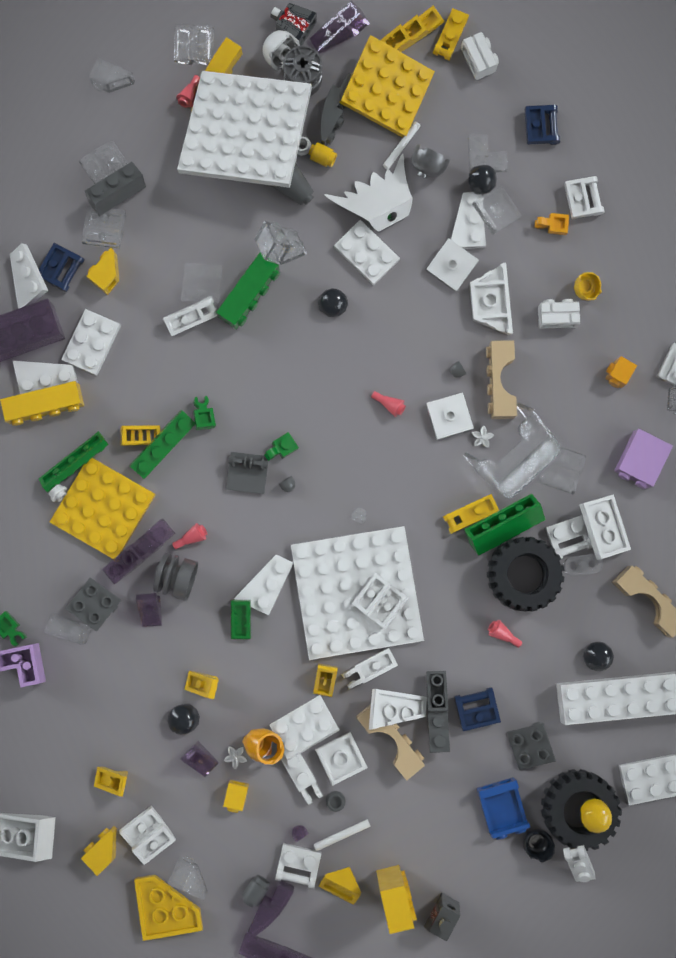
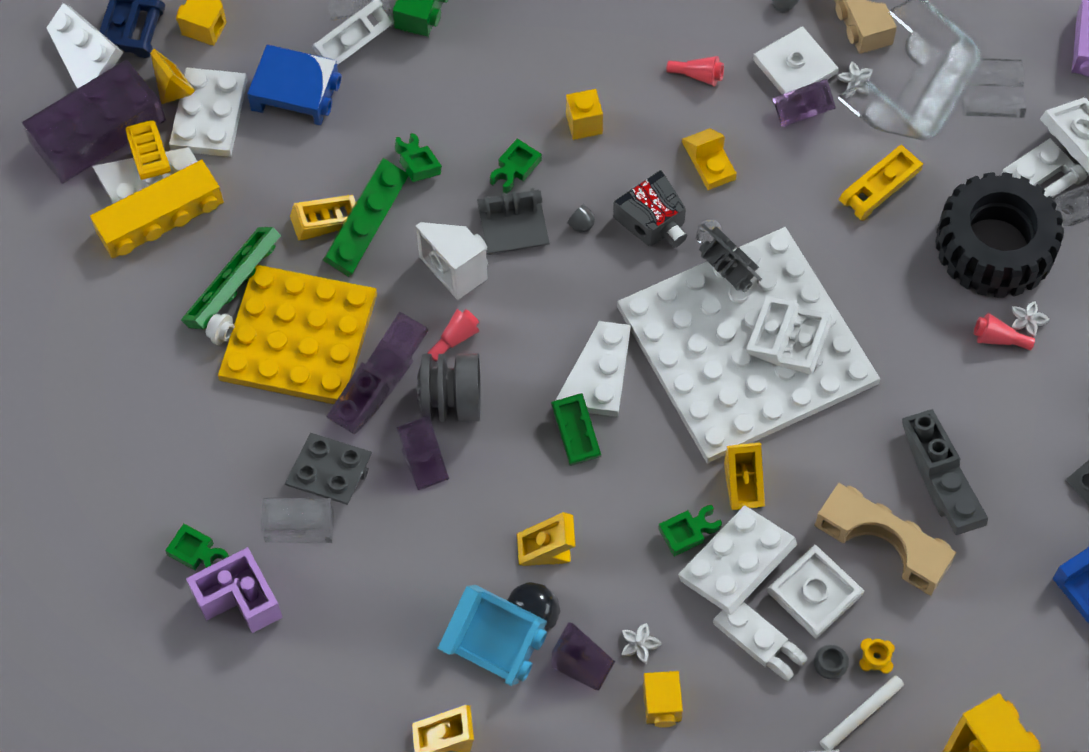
camera: 10 degrees left, 20 degrees down
(45, 351) = (147, 148): none -> yellow slope
(73, 313) = (169, 79): none -> yellow slope
(145, 341) = (294, 82): none -> blue panel
(156, 732) = (494, 634): none -> medium azure panel
(203, 492) = (453, 256): none -> white slope
(259, 743) = (672, 596): light orange piece -> none
(261, 434) = (517, 162): none -> green plate
(281, 700) = (685, 532): none -> green plate
(282, 446) = (555, 169): green plate -> none
(299, 832) = (790, 729): clear purple hinge -> none
(310, 415) = (584, 114): none -> yellow brick
(330, 493) = (652, 211): none -> torso
(359, 536) = (721, 252): none -> dark grey hinge
(363, 811) = (879, 646): none -> yellow plate
(372, 667) = (812, 441): white hinge -> none
(376, 464) = (710, 158): none -> yellow slope
(395, 707) = (874, 480): white wing -> none
(443, 448) = (804, 103): none -> clear purple slope
(480, 715) = (1010, 463): dark blue plate -> none
(505, 524) = (932, 181): green brick -> none
(523, 627) = (1029, 318): none -> white plant

